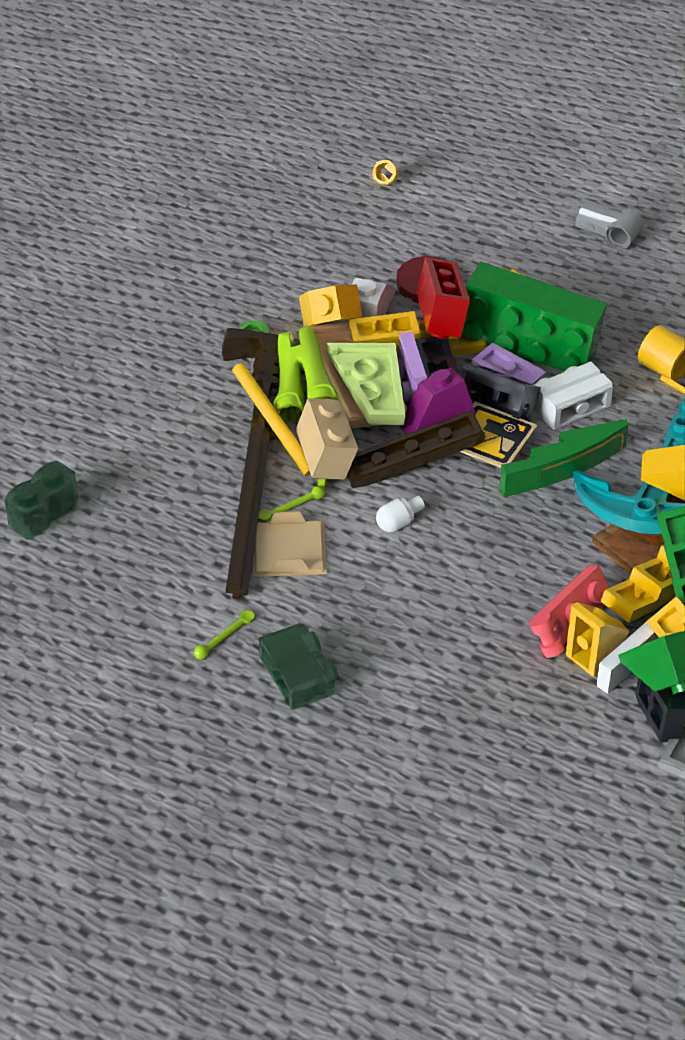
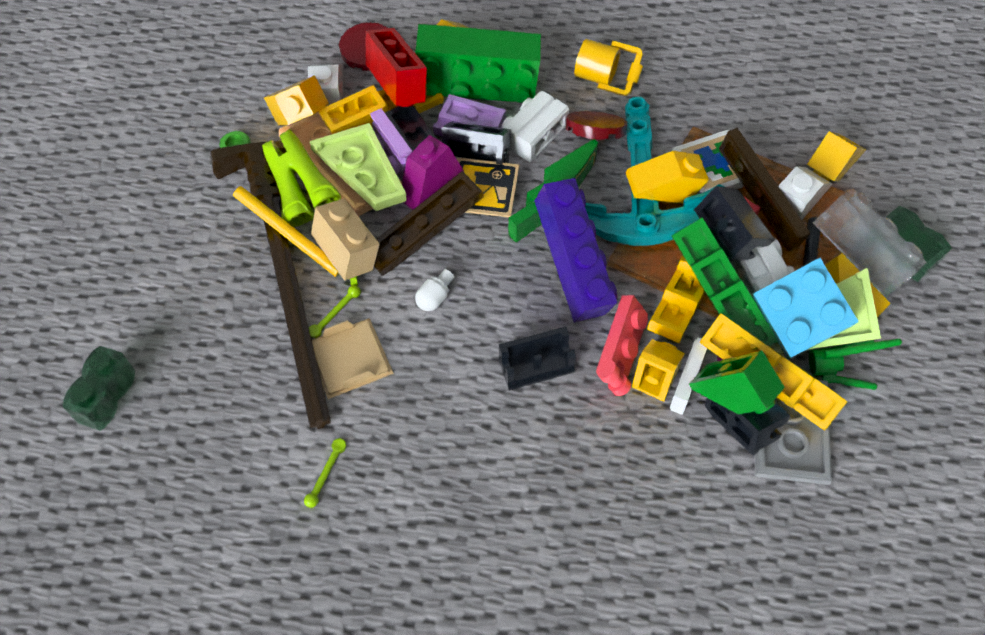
camera: 20 degrees left, 15 degrees up
(298, 665) = (407, 487): clear green brick -> none
(476, 596) = (536, 358): none -> black hinge
(557, 510) = (575, 250): none -> dark purple brick
(636, 409) = (596, 125): none -> dark red tile

